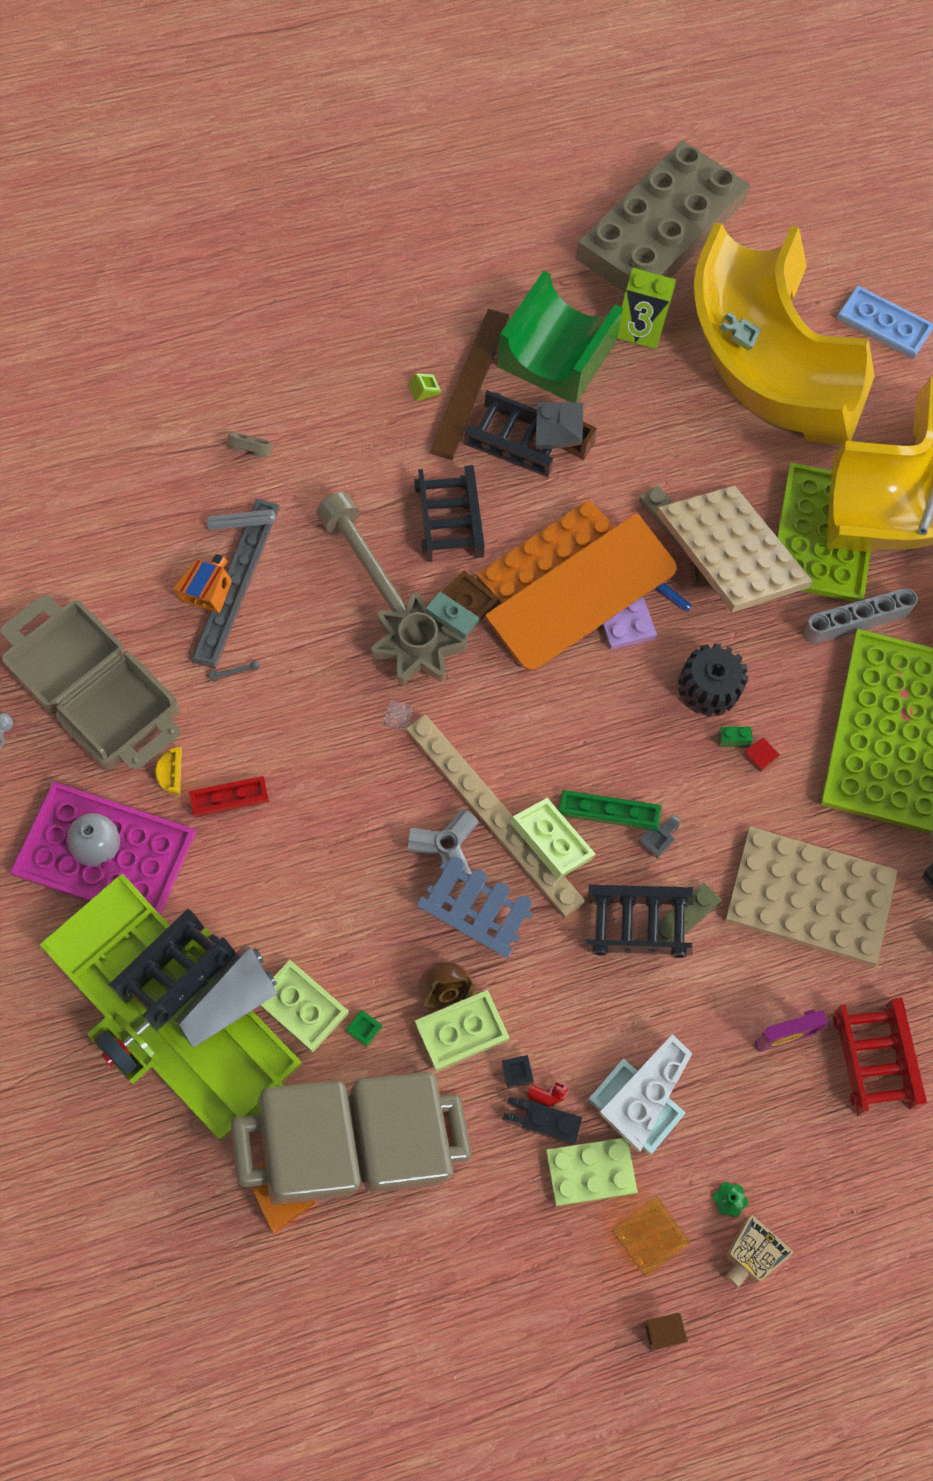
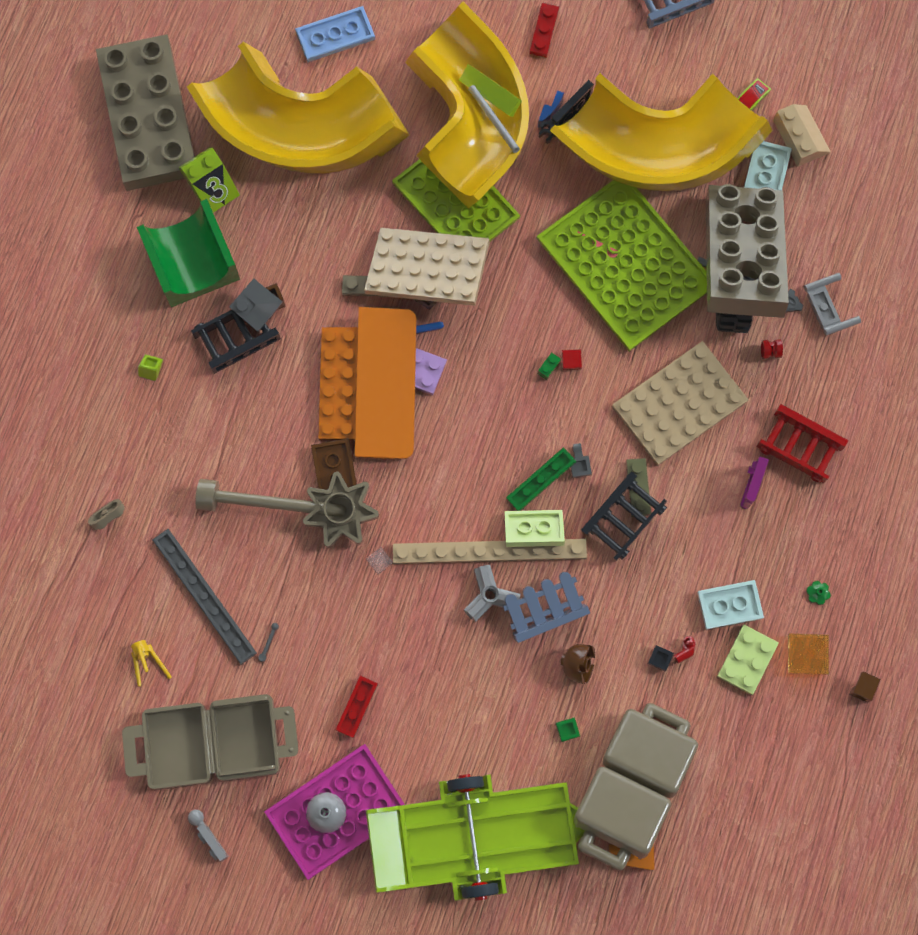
camera: 50 degrees left, 10 degrees up
(136, 563) = (140, 652): none -> yellow plant
(158, 955) = (438, 815): black fence -> none
(169, 771) = (310, 732): yellow plate -> none
(205, 584) = (194, 618): orange torso -> none
(227, 997) = (498, 799): slope -> none
(241, 519) = (162, 561): light grey axle -> none
(303, 1007) = (527, 757): yellowish green plate -> none
(452, 615) = (343, 478): sand green plate -> none
(461, 1030) = (612, 672): yellowish green plate -> none
(469, 385) = (171, 335): reddish brown tile -> none
(469, 501) = (278, 413): black fence -> none
(545, 1121) = (700, 663): black hinge -> none
(642, 1098) = (731, 602): white wing -> none
(717, 679) = (501, 360): black wheel -> none
(742, 331) = (281, 135): sand green plate -> none
(755, 1253) = (858, 603): tan torso -> none
(867, 608) = (528, 218): light grey beam -> none

